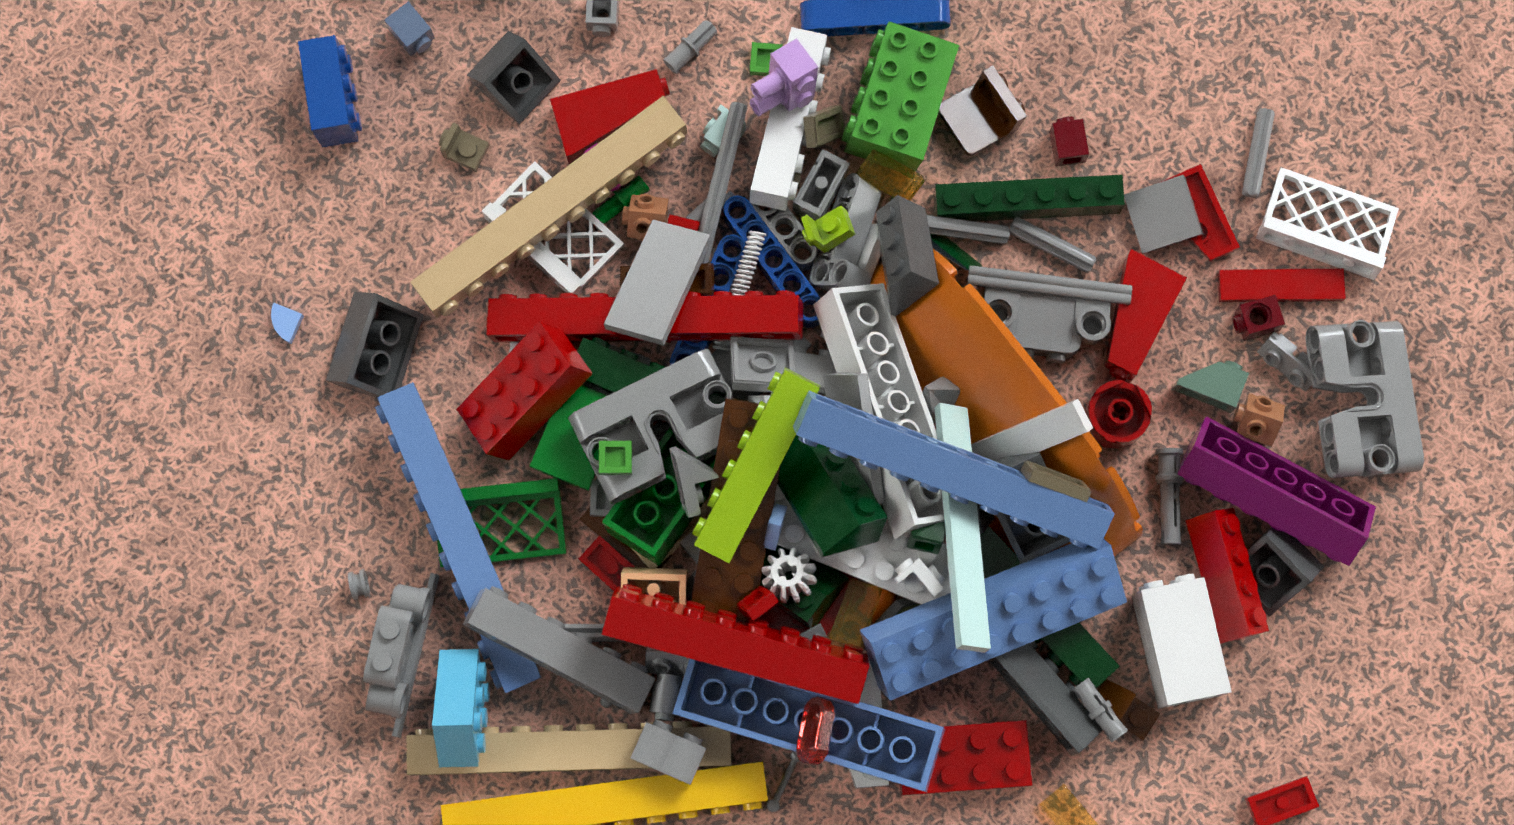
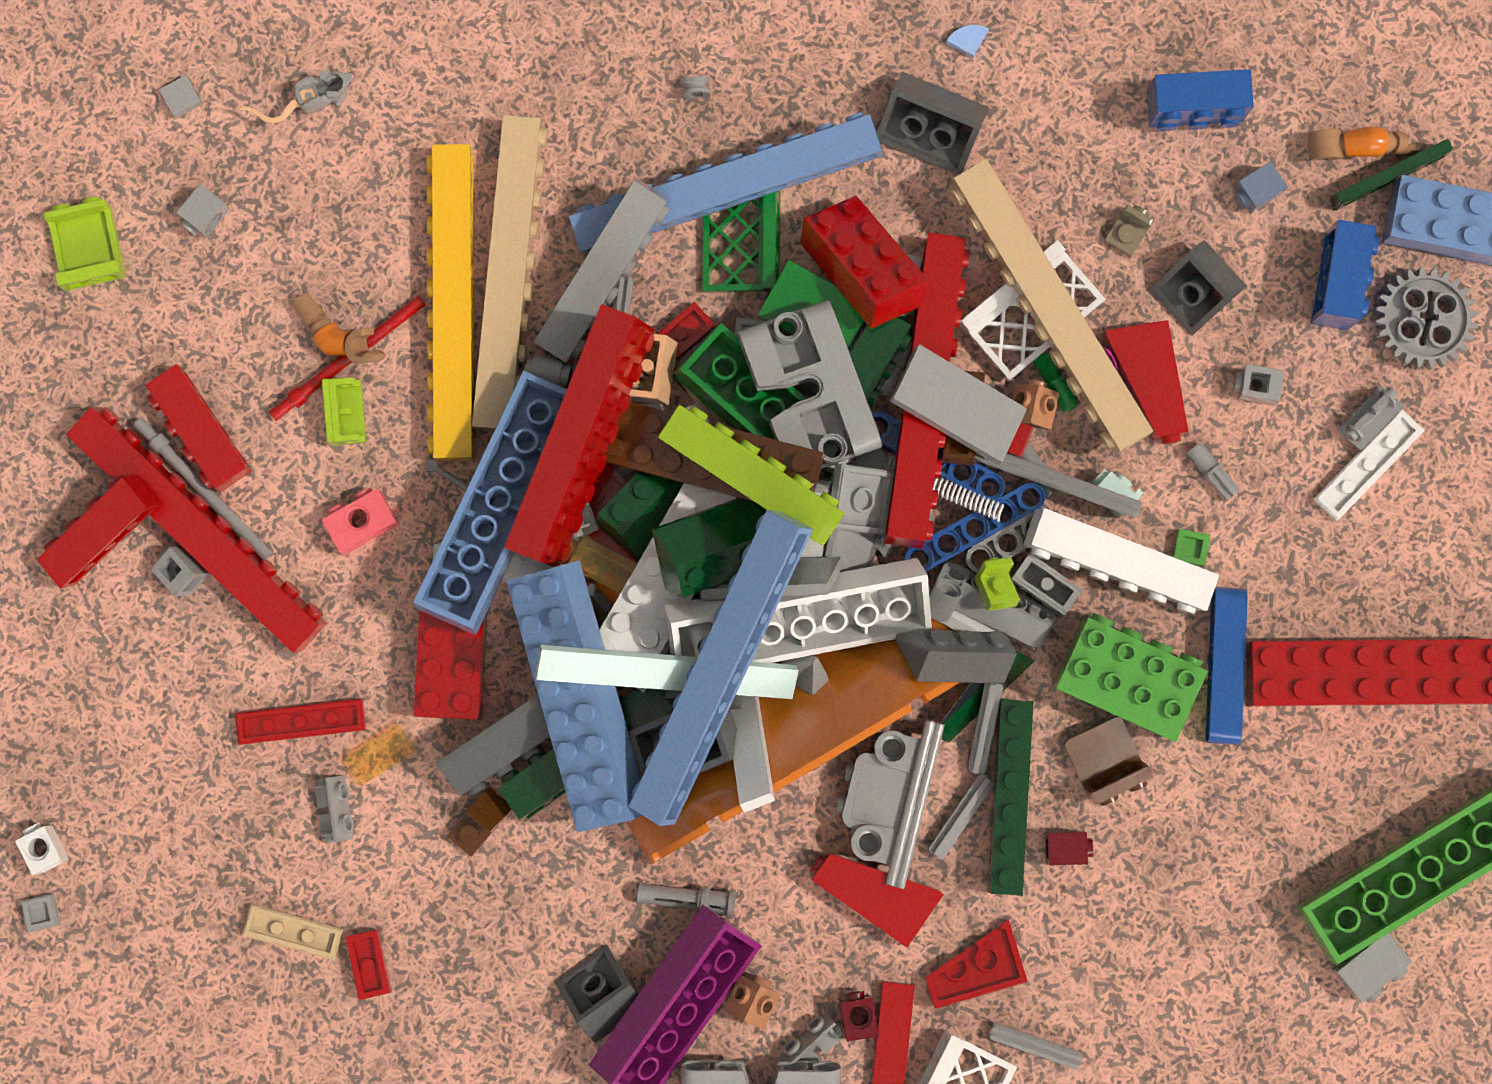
camera: 100 degrees right, 5 degrees up
(397, 650) = (624, 116): light grey brick -> none
(459, 708) = (557, 168): medium azure brick -> none
(615, 457) = (778, 339): bright green tile -> none
(669, 752) = (489, 365): light grey brick -> none
(688, 473) = (753, 411): light grey slope -> none
(757, 603) = (619, 463): red tile -> none
(775, 526) = (693, 490): light blue tile -> none
(789, 80) = (1153, 561): lavender brick -> none
(801, 571) = (637, 509): white gear -> none
(815, 731) = (484, 503): clear red plate -> none
(823, 126) = (1108, 594): dark tan tile -> none
(890, 176) = (1048, 657): clear yellow tile -> none
(927, 538) = (660, 638): dark green slope -> none
(929, 577) = (622, 634): white bracket -> none
(1055, 481) = (699, 770): dark tan tile -> none
(1100, 710) = (477, 793): light grey pin -> none
(1123, 397) = (765, 872): red brick -> none
(1163, 214) = (978, 934): light grey tile -> none
(1180, 641) = (535, 885): white brick -> none
(1215, 385) = (794, 963): sand green slope -> none
(1227, 575) = (597, 942): red brick -> none

